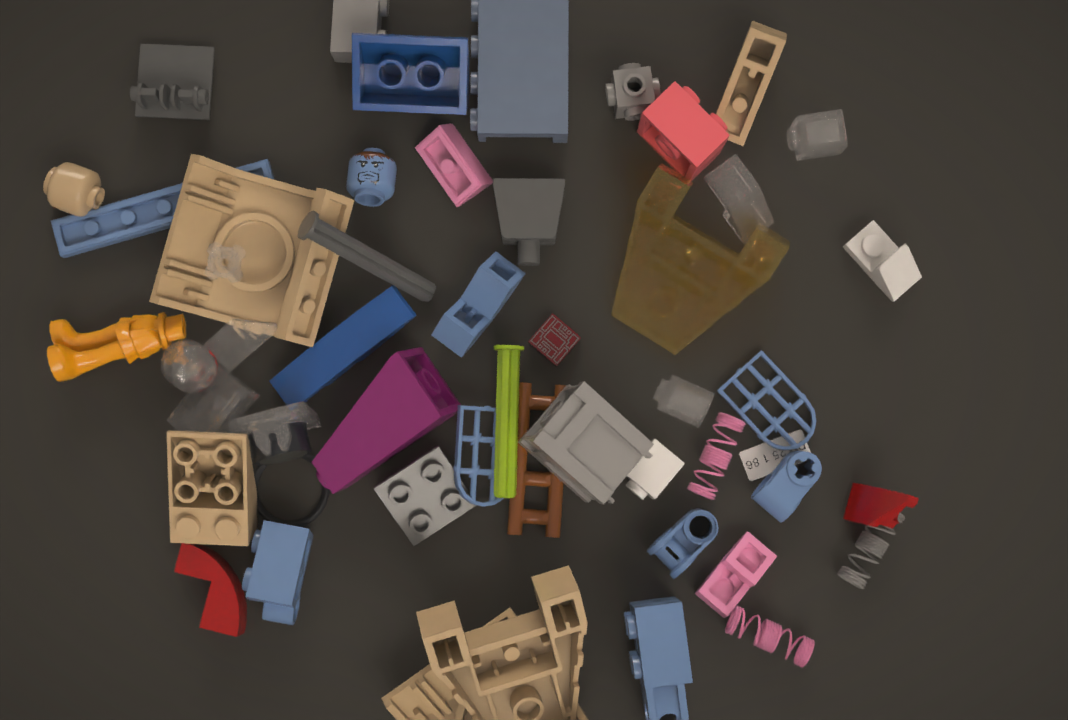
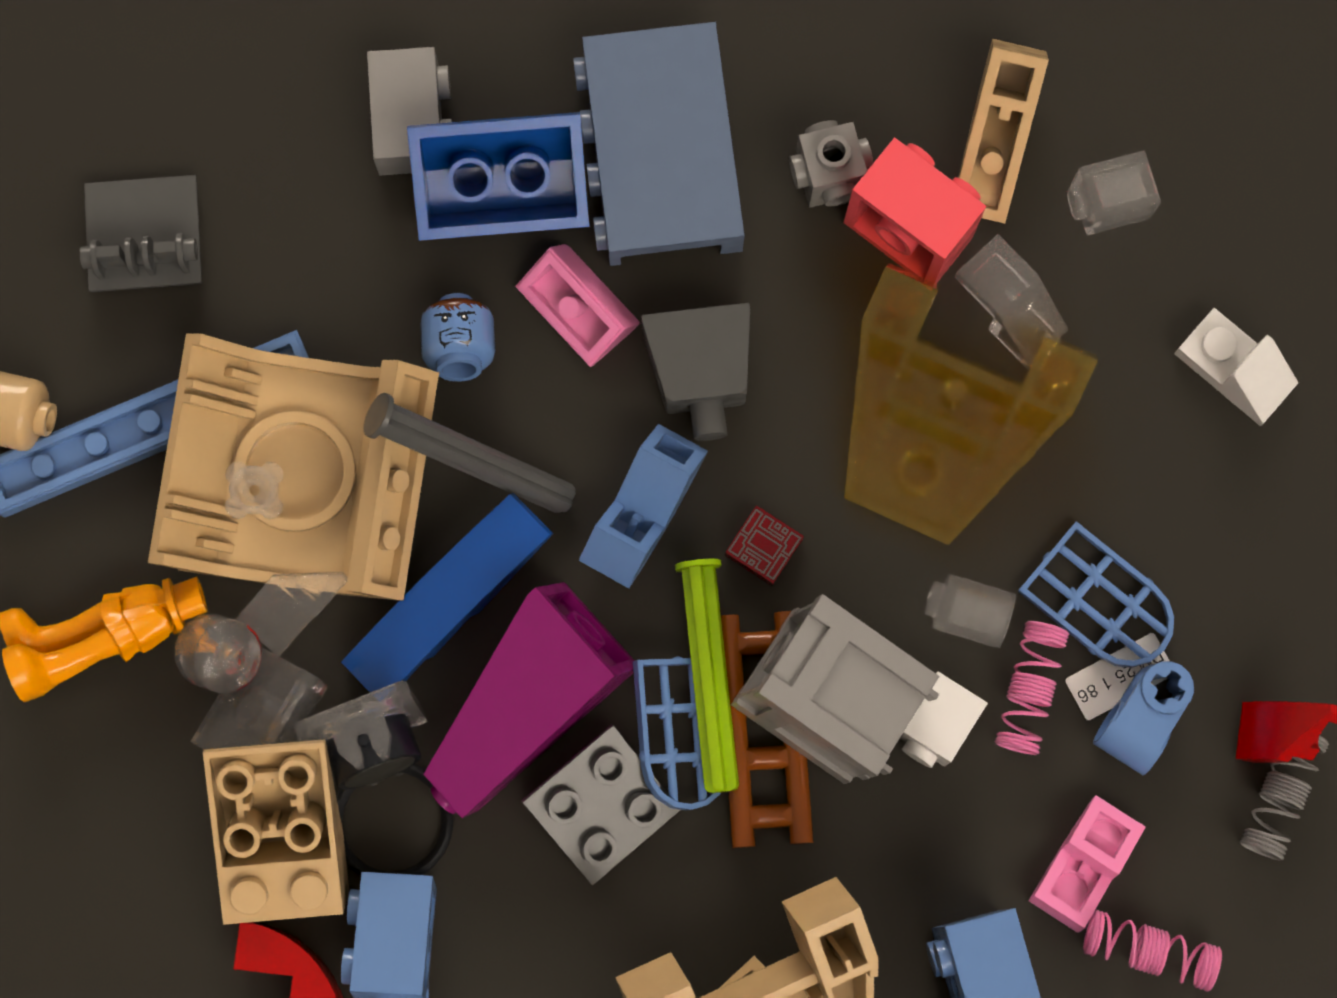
camera: 10 degrees left, 5 degrees down
(682, 542) = (1001, 824): medium blue piece -> none

